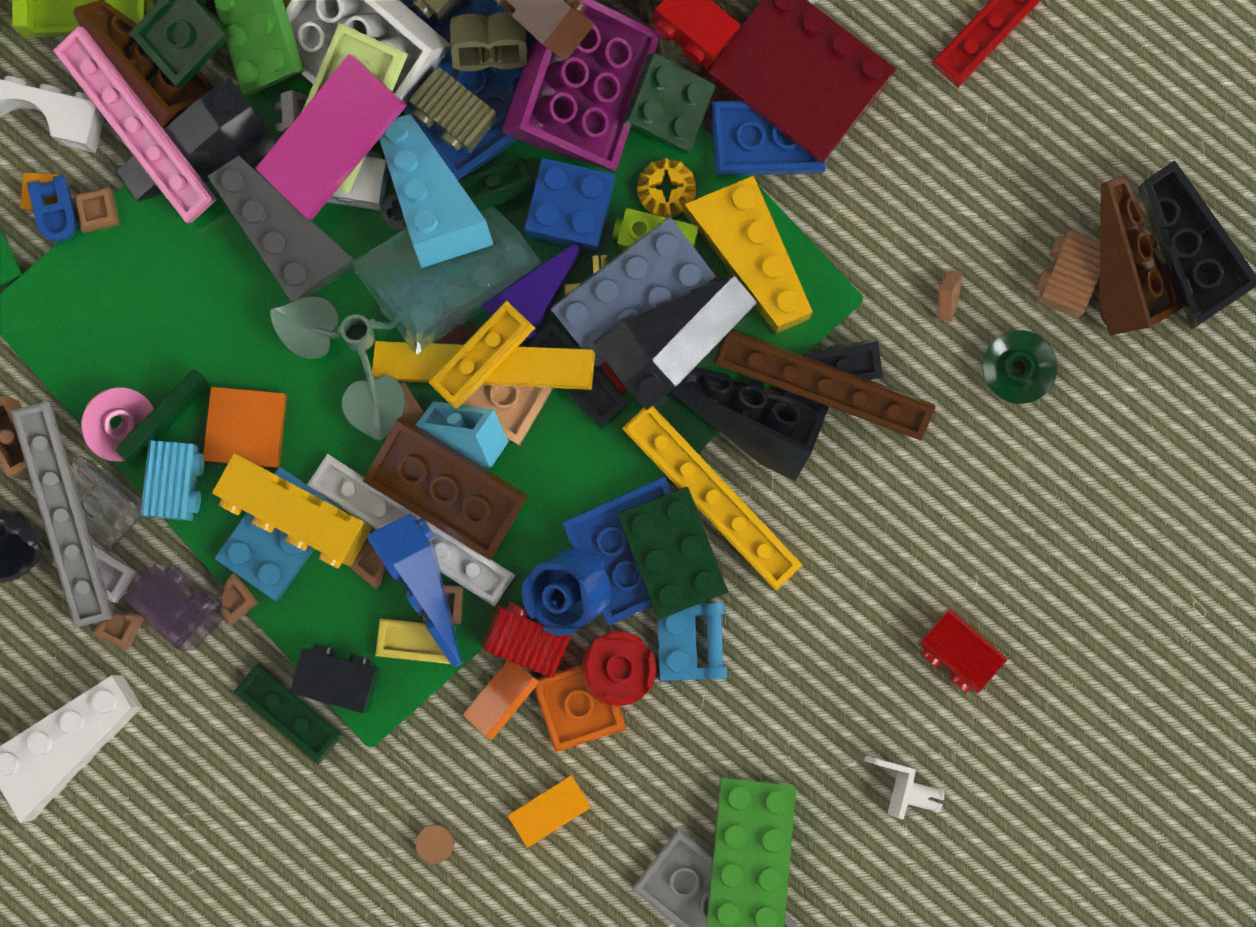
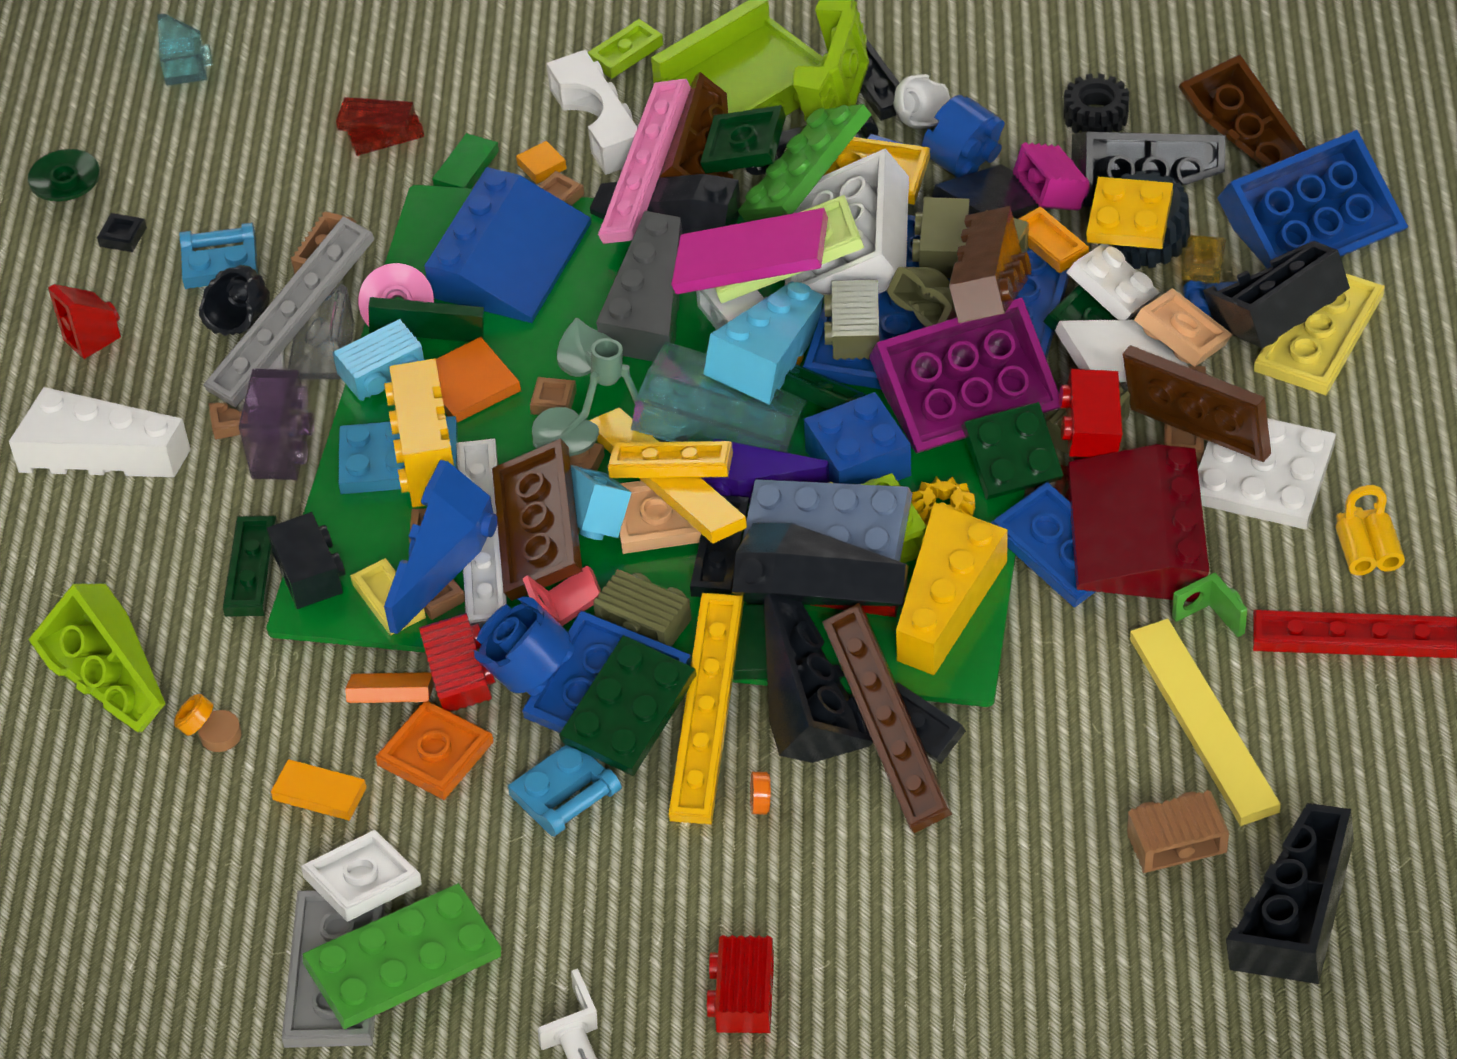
camera: 50 degrees right, 35 degrees down
(58, 220) = (527, 162): blue plate -> none
(130, 296) = (505, 247): none -> blue slope
(236, 599) = (317, 466): medium nougat tile -> none
(283, 881) = (98, 650): none -> lime wedge
(317, 379) = (552, 394): none -> medium nougat tile
(409, 855) = (193, 714): none -> light orange tile
(533, 521) = (568, 597): none -> coral bracket
(592, 475) = (644, 607): none -> olive brick
(618, 668) = (491, 747): red tile -> none
(658, 838) = (361, 875): none -> white tile
(812, 517) = (760, 793): none -> orange tile
(912, 73) = (1217, 595): none -> bright green bracket
(949, 295) = (1061, 759): medium nougat tile -> none
(992, 174) = (1205, 722): none -> light yellow tile
(1029, 351) = (1050, 836): dark green dish -> none
(1132, 284) = (1228, 850): reddish brown wedge -> none

